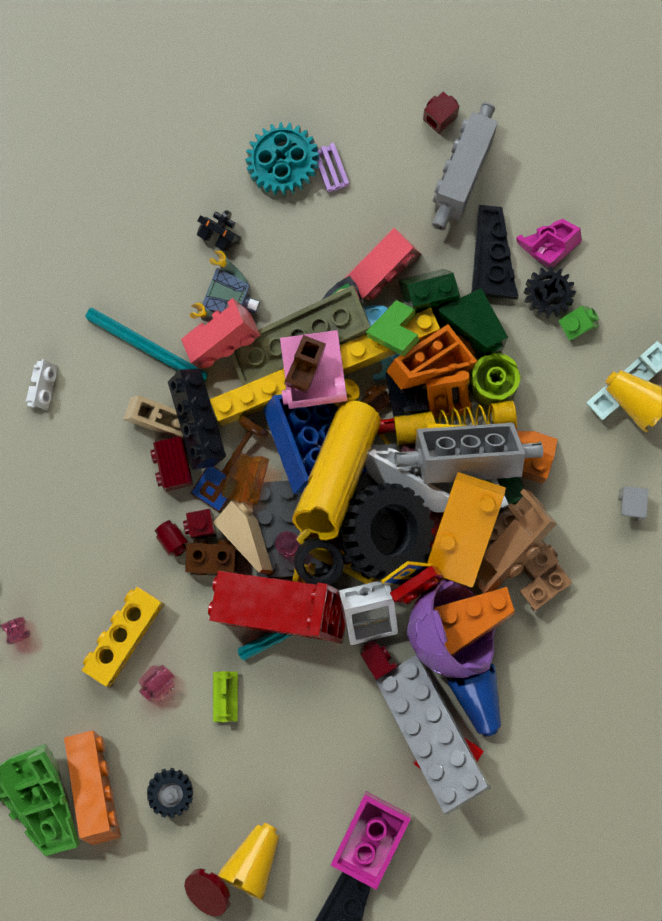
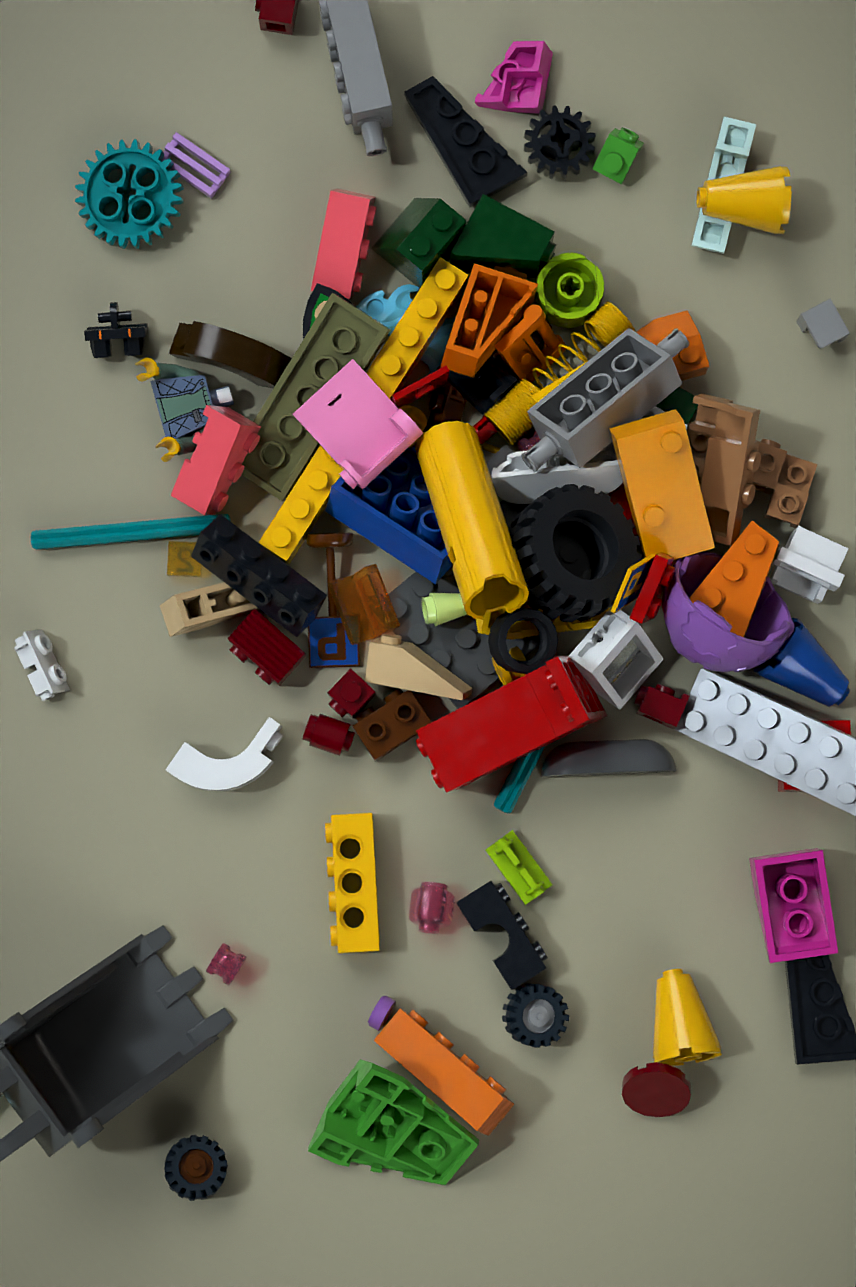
camera: 40 degrees left, 5 degrees up
(82, 724) = (381, 1012): none -> medium lavender tile
(84, 509) = (230, 773): none -> white arch
(160, 381) = (180, 560): none -> clear yellow tile
(187, 753) = (521, 958): none -> black arch
(273, 282) = (230, 352): none -> dark brown arch
(285, 509) = (442, 607): none -> yellowish green cone
(286, 540) = (466, 639): clear pink wheel -> none
(305, 363) = (346, 424): reddish brown brick -> none
(324, 669) = (607, 758): none -> dark grey brick
(366, 375) = (421, 387): none -> red container
(390, 329) = (415, 318): bright green tile -> none
(524, 639) = (809, 565): none -> white plate

